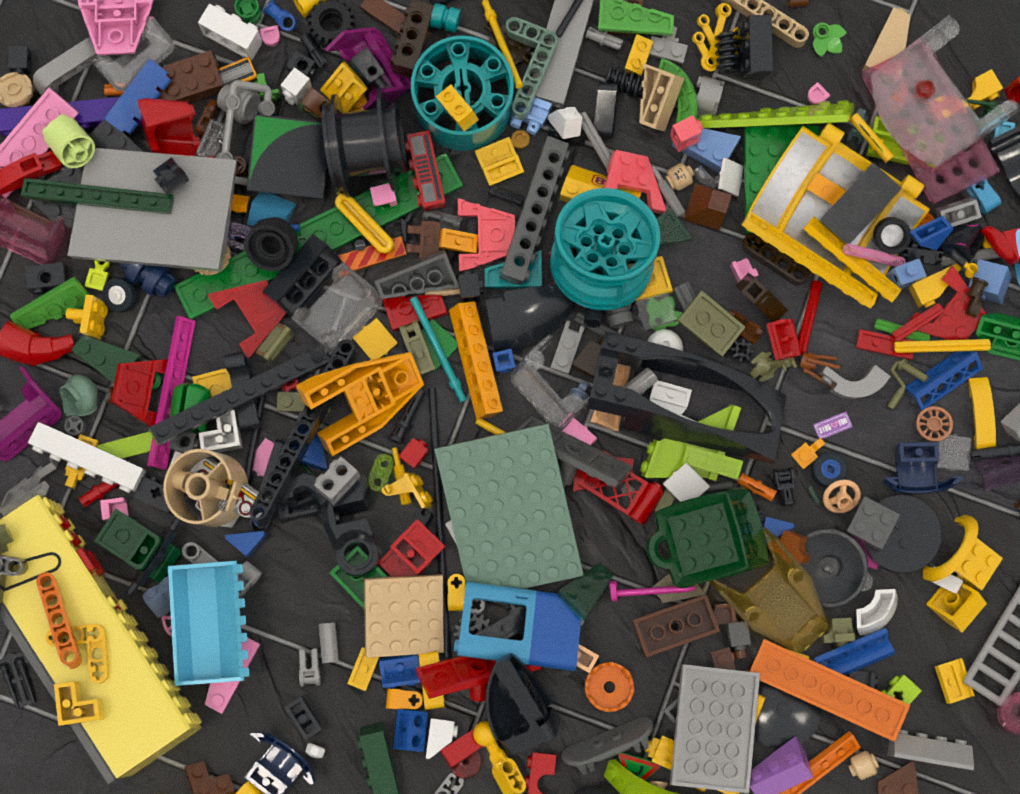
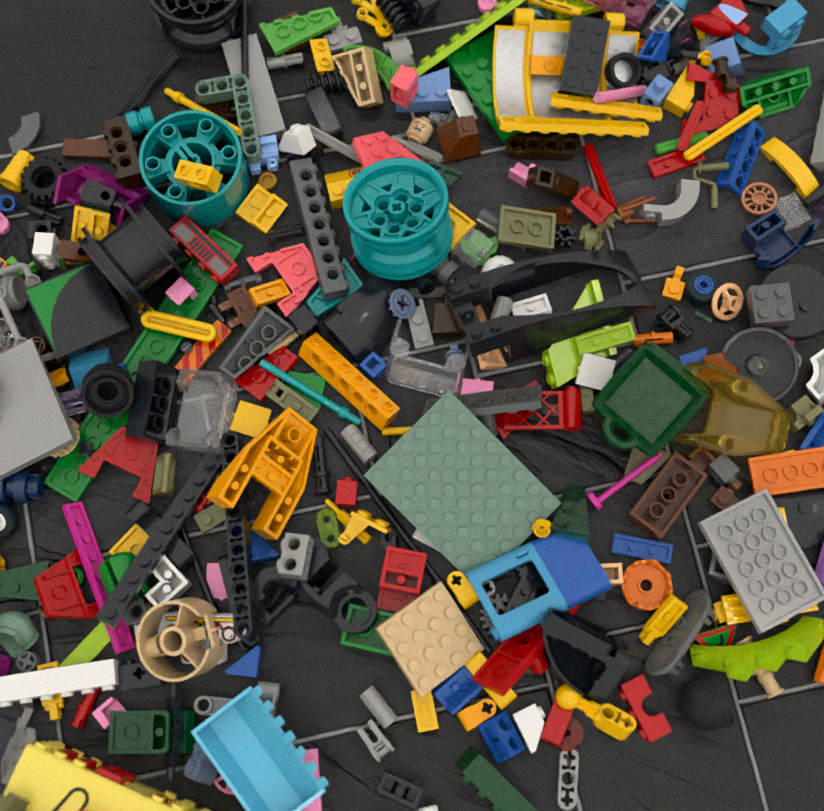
camera: 30 degrees left, 5 degrees down
(225, 280) = (86, 448): none -> black piece
(450, 418) = (359, 443): none -> light grey axle
(552, 585) = (541, 531): none -> yellow plate
(568, 318) = (406, 299): none -> sand blue gear
(603, 723) = (663, 619): none -> yellow hinge
(627, 655) = (641, 548): none -> blue tile
(832, 425) = (678, 251): medium lavender sticker -> none

